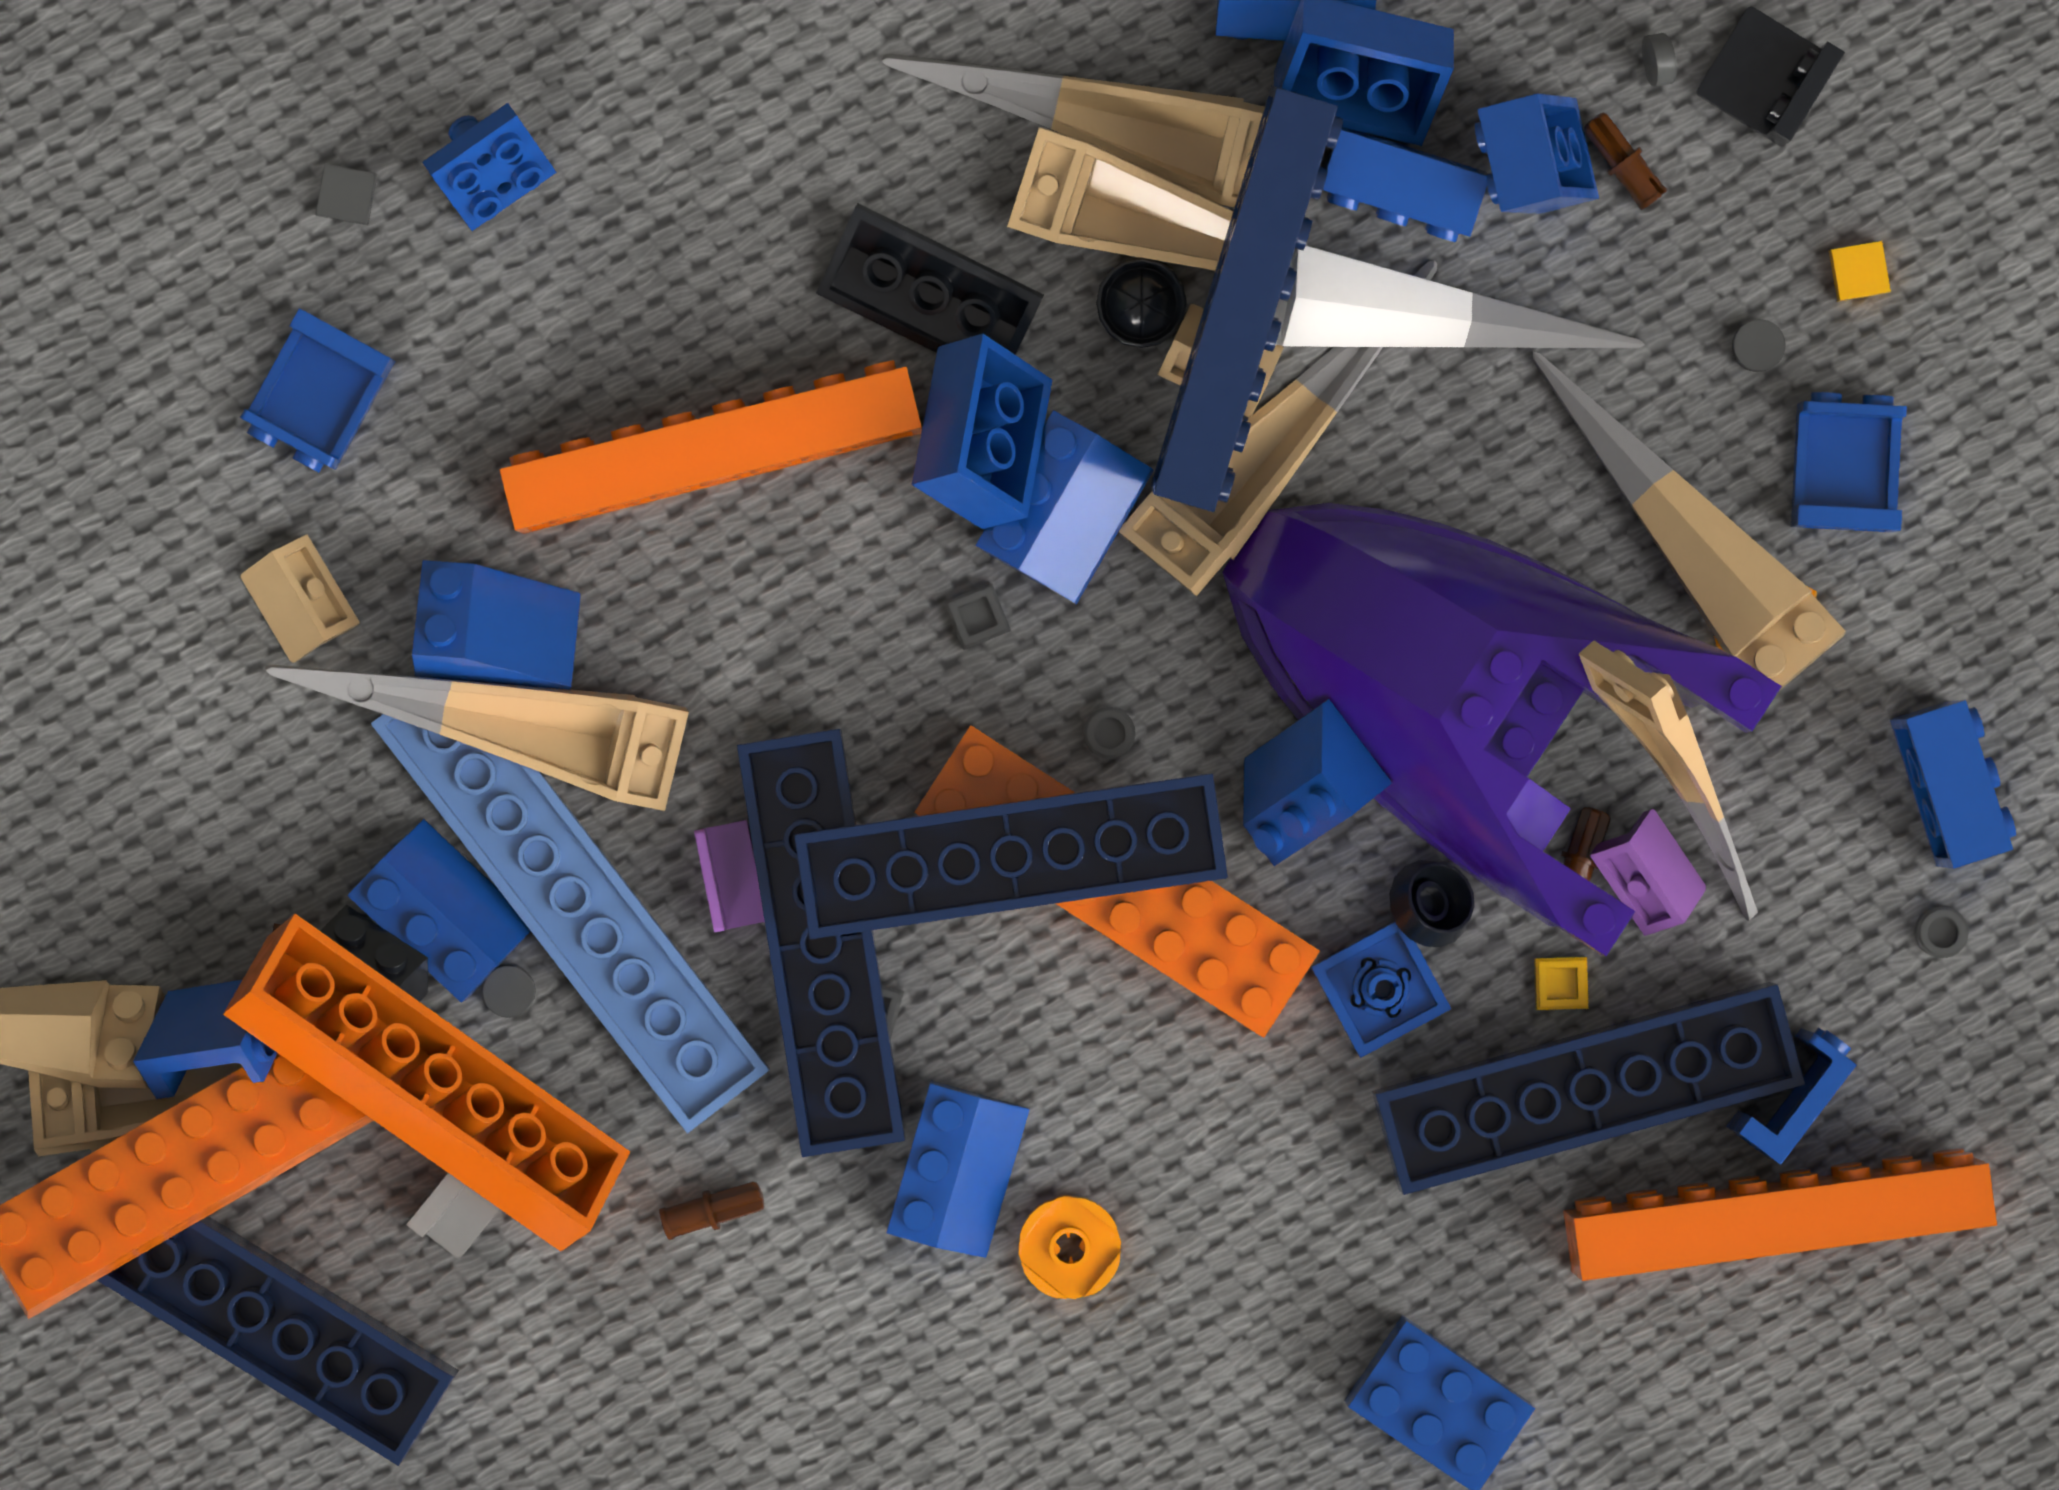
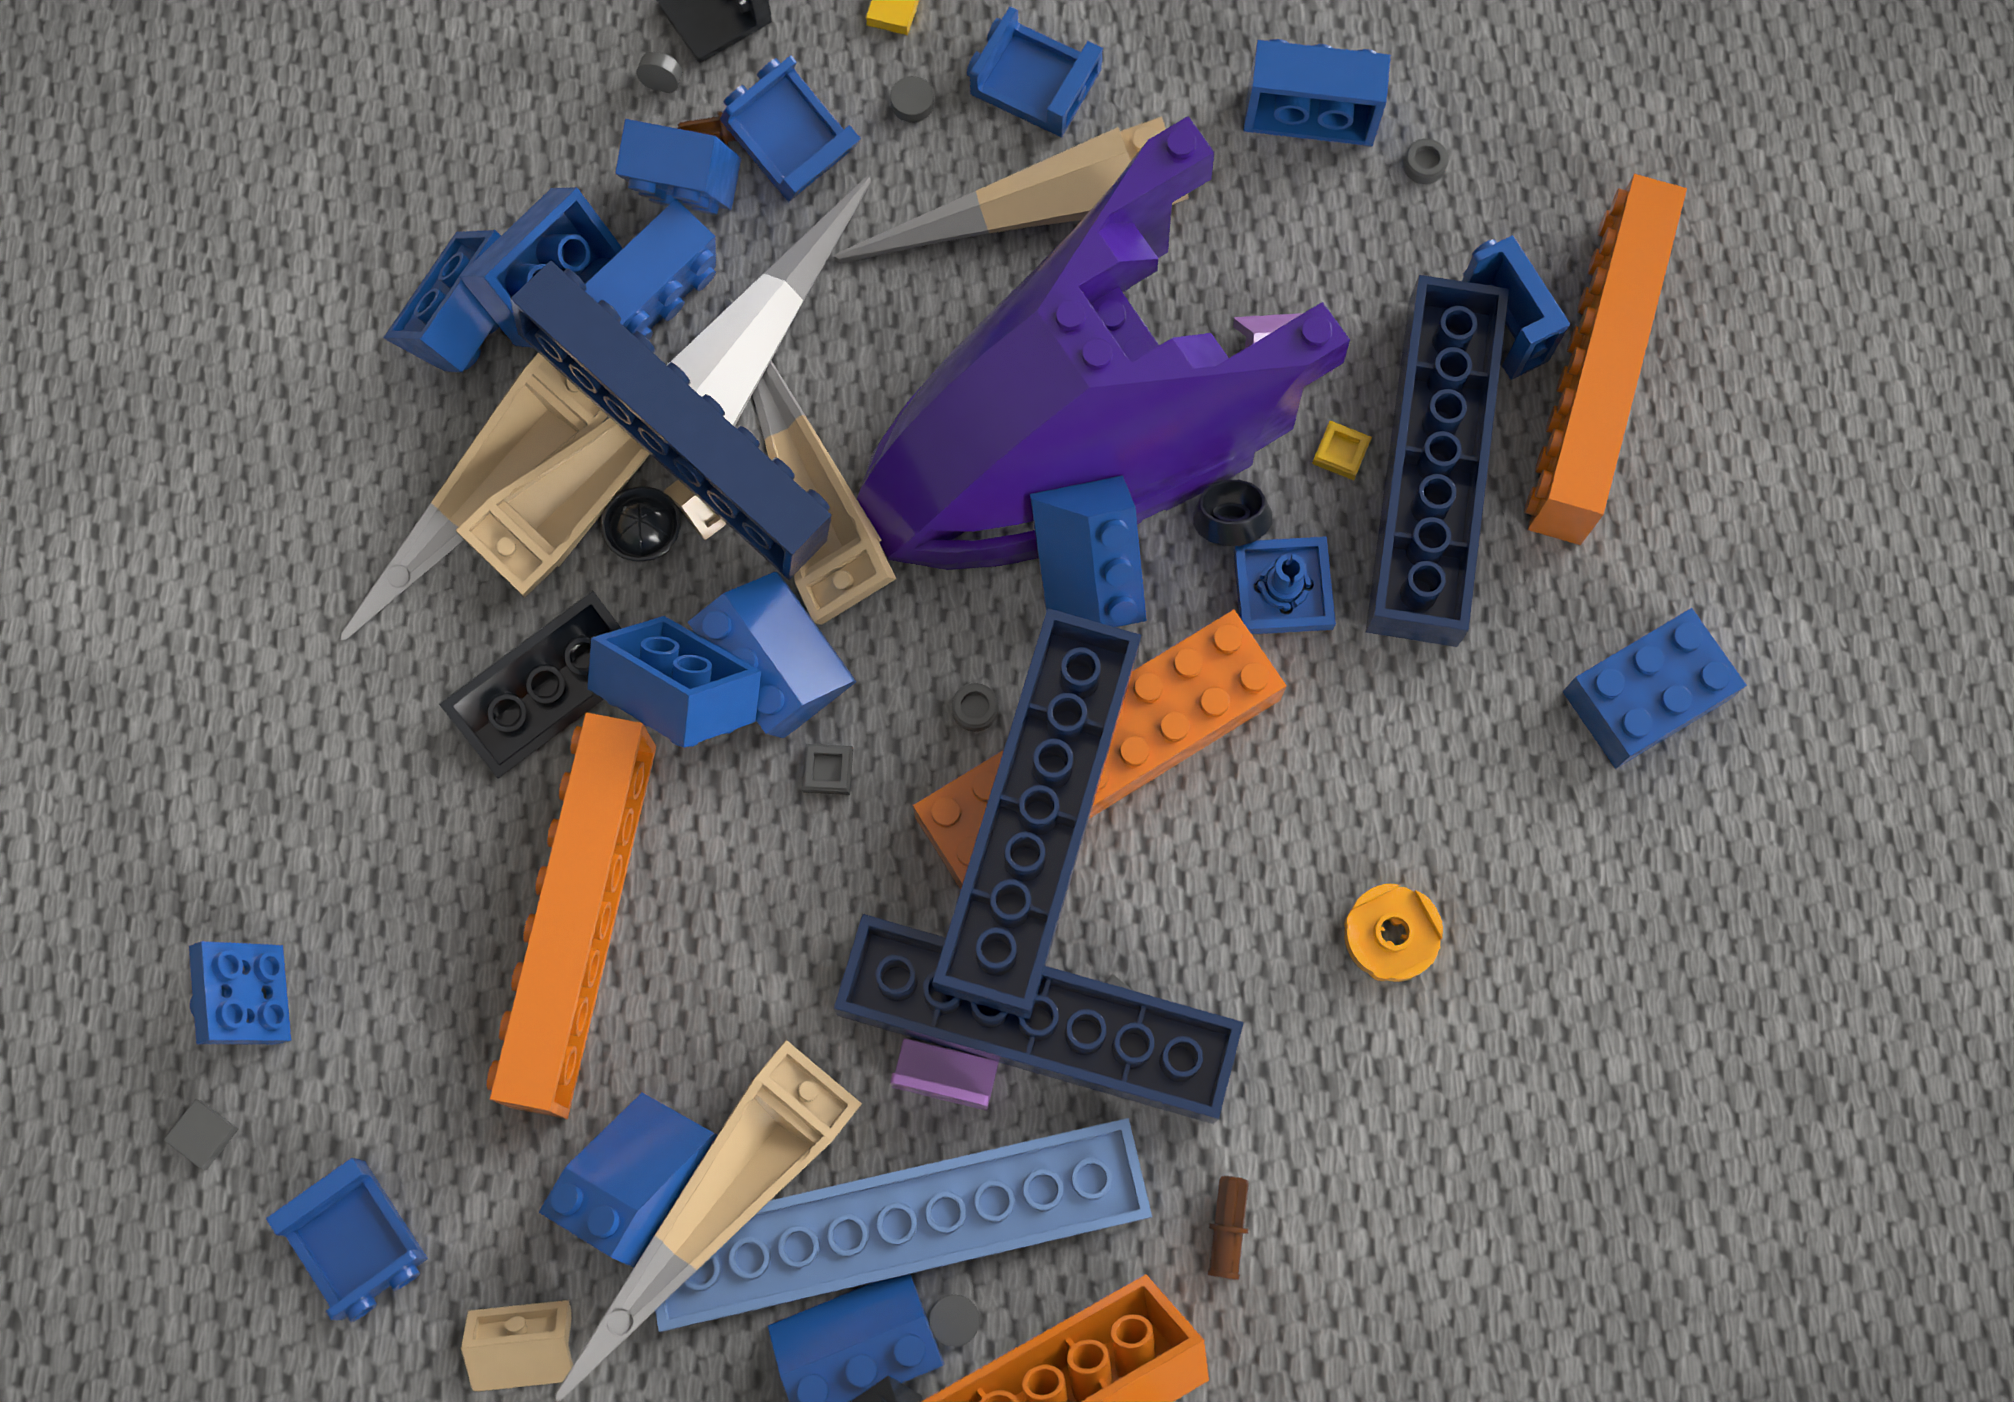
camera: 65 degrees left, 15 degrees down
(957, 1170) = (1285, 998): blue slope -> none
(1649, 237) = (786, 128): none -> blue panel
(1660, 723) = (1183, 224): tan plate -> none

